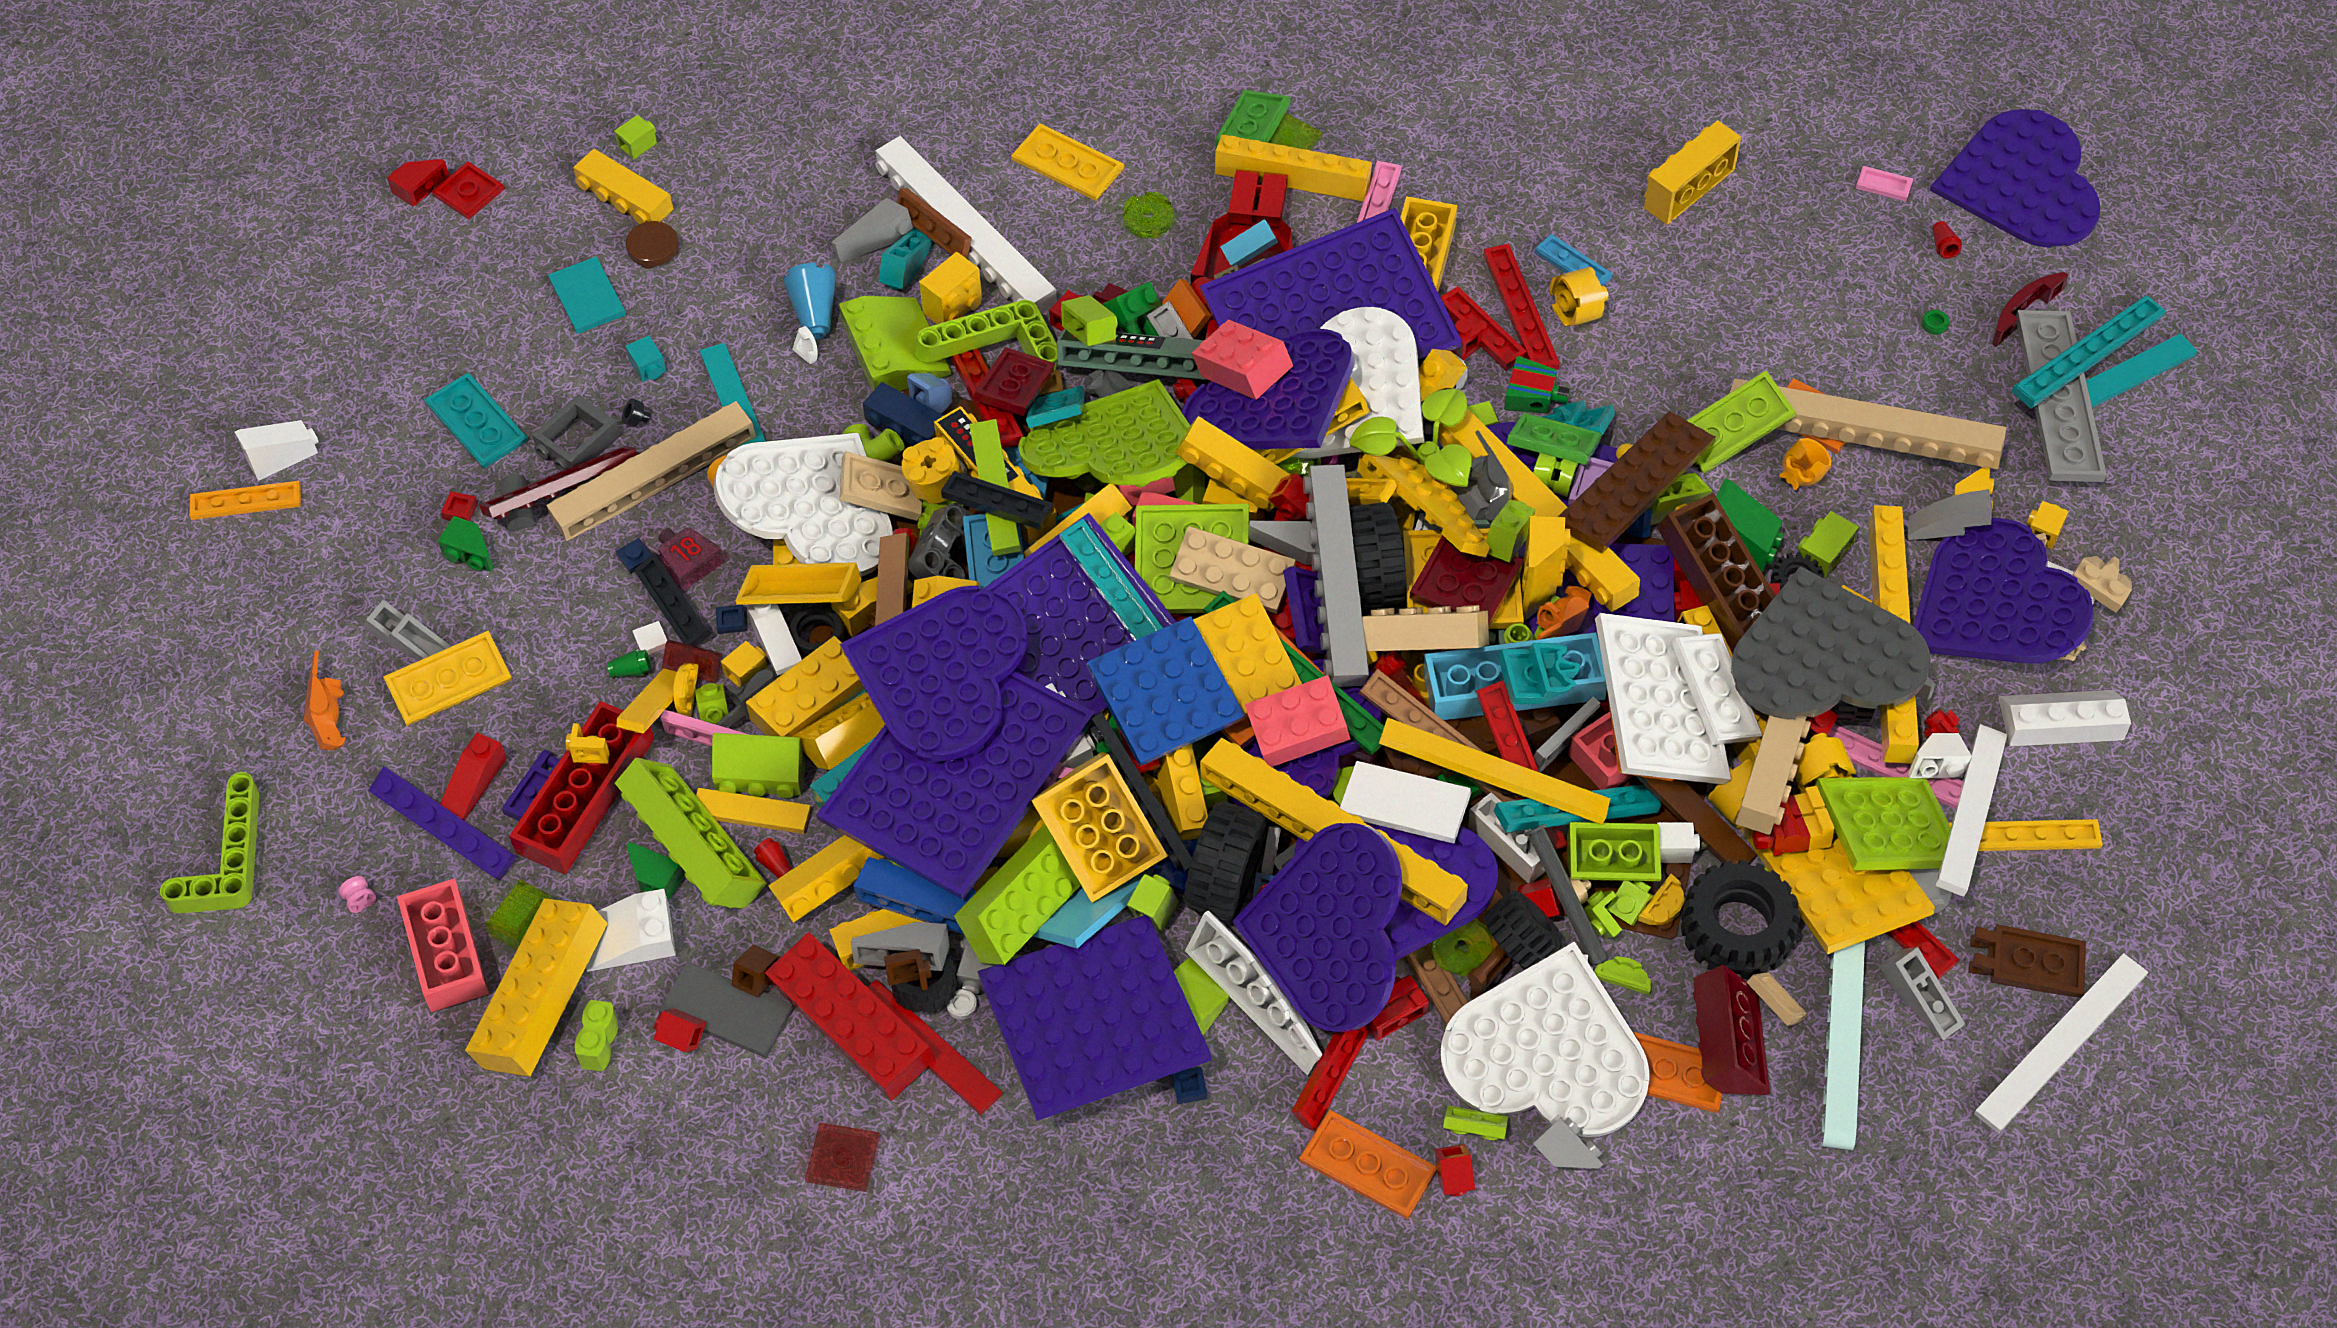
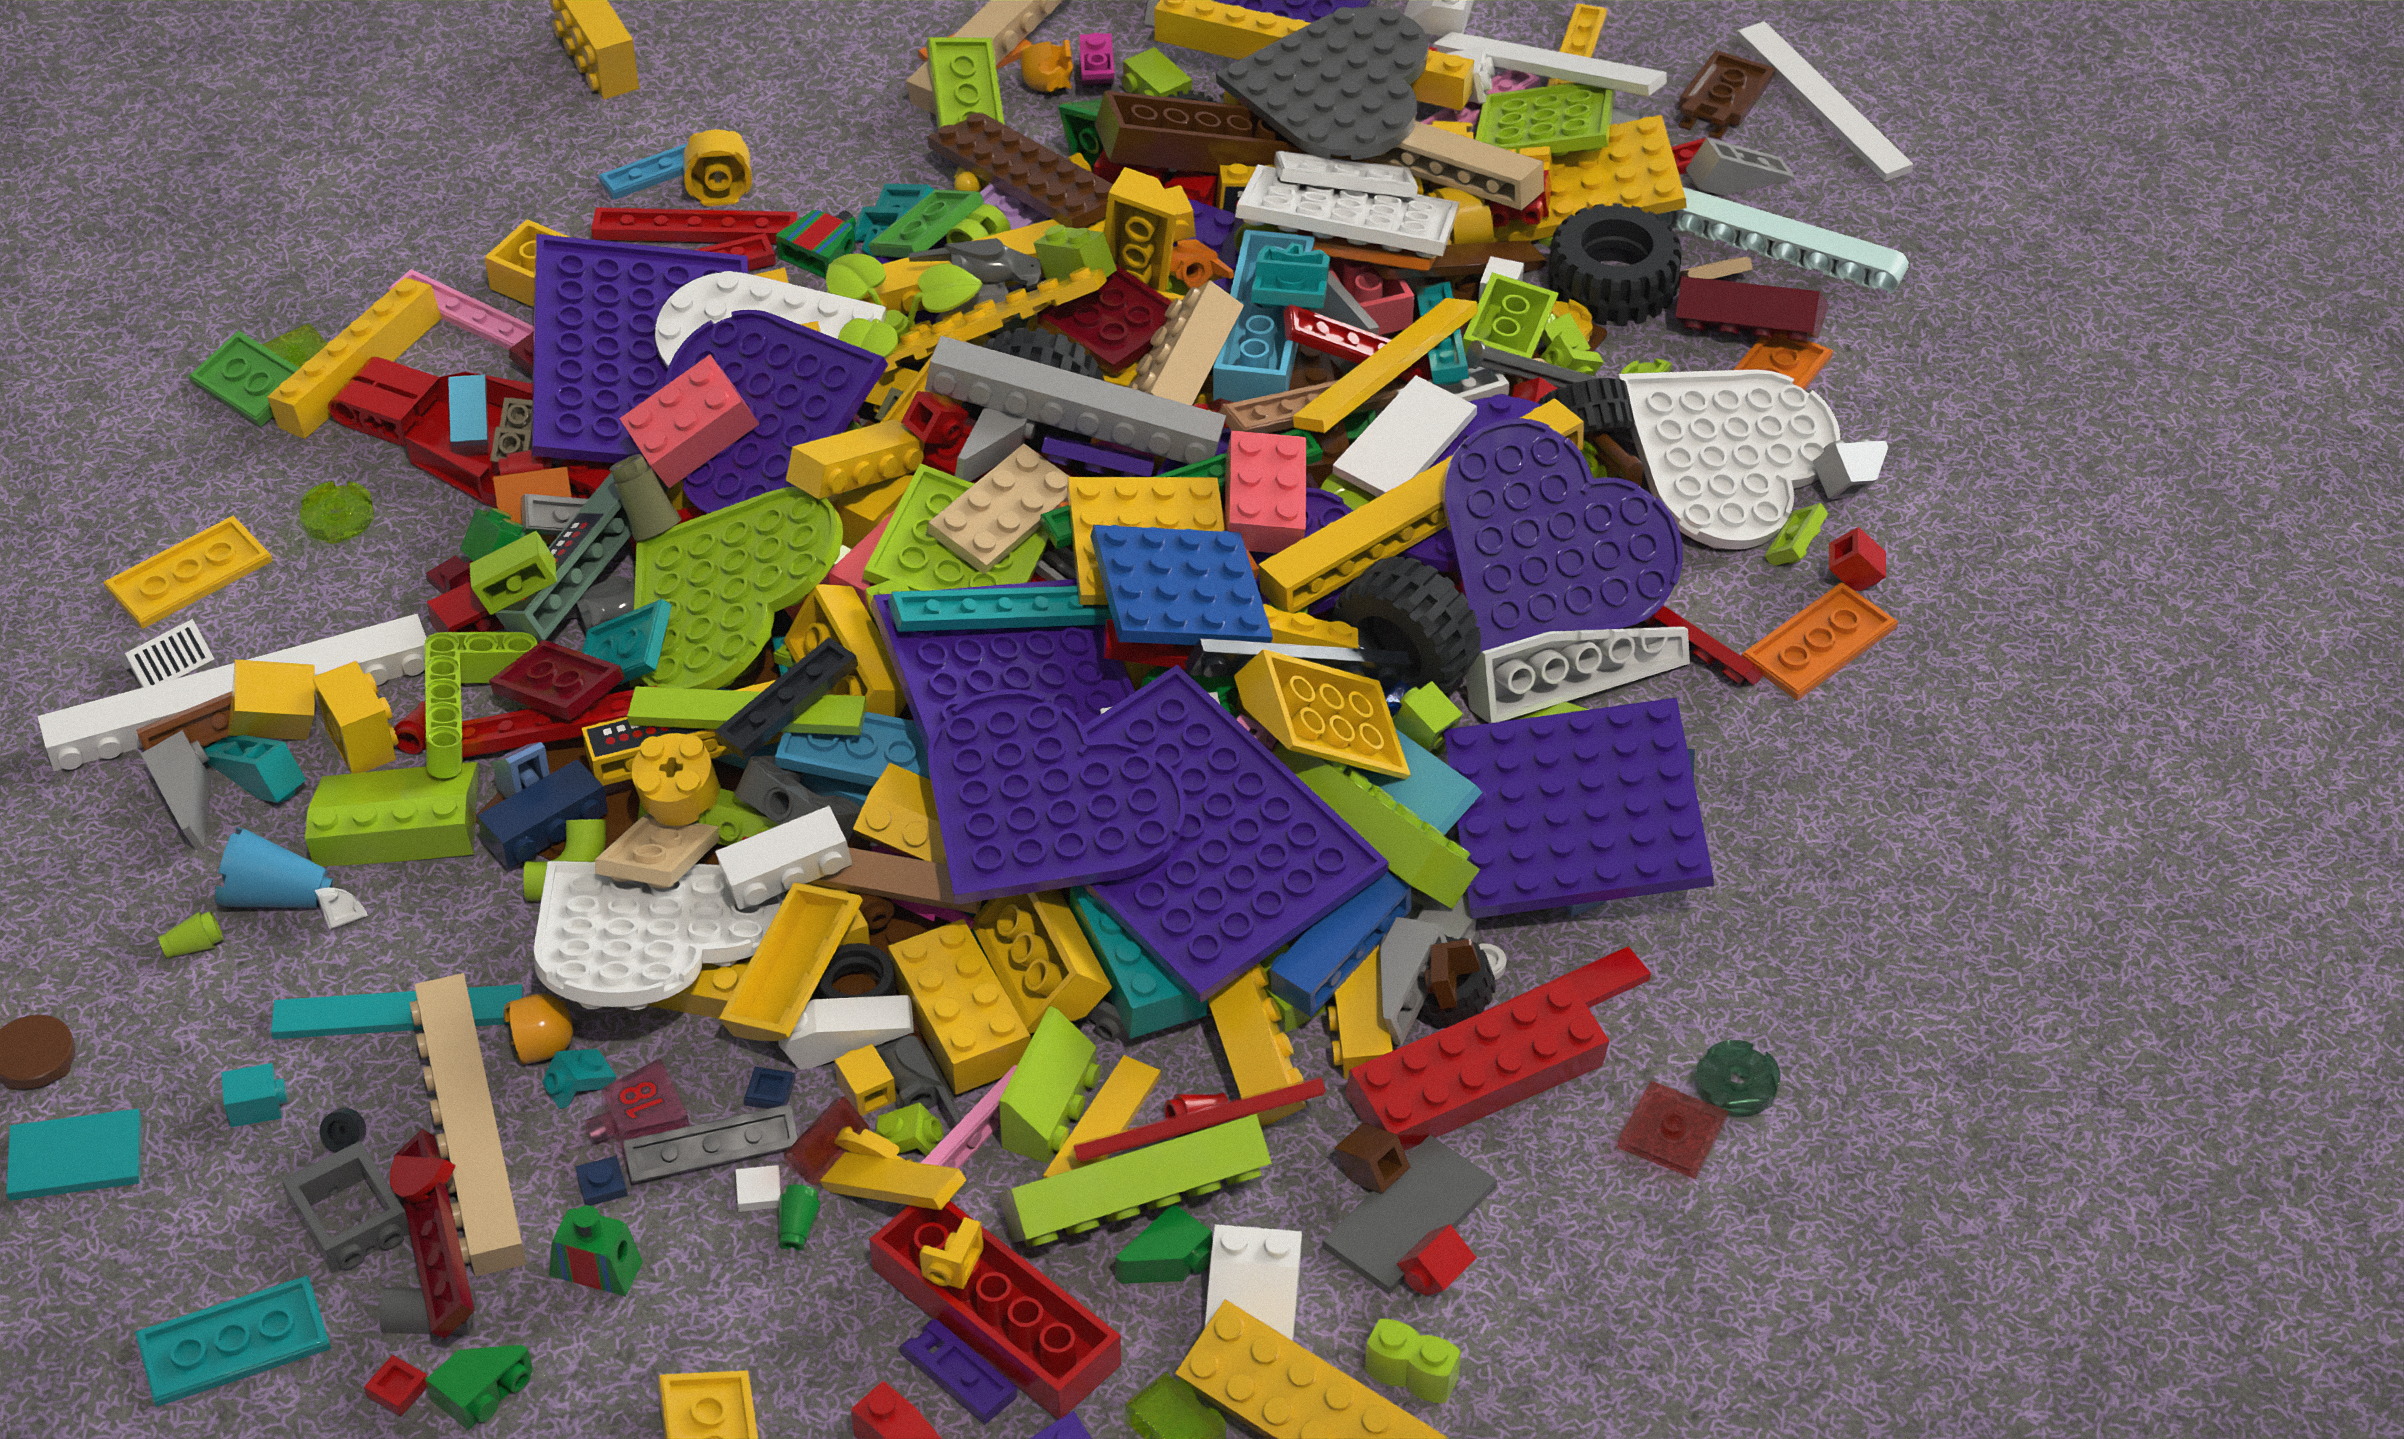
camera: 75 degrees left, 10 degrees down
(569, 558) = (594, 1251): none -> green torso
(593, 456) = (417, 1176): none -> red tile
(709, 515) = (575, 1072): none -> teal bracket
(744, 856) = (1199, 1119): none -> red tile
(762, 283) = (192, 935): none -> lime cone
(875, 551) = (784, 855): none -> white brick
(897, 1205) = (1739, 1057): none -> clear green plate
(945, 235) = (272, 700): none -> yellow slope
(986, 179) = (168, 655): none -> white panel
(1177, 365) = (643, 498): none -> olive plant
(1826, 495) = (1096, 59): none -> dark pink slope

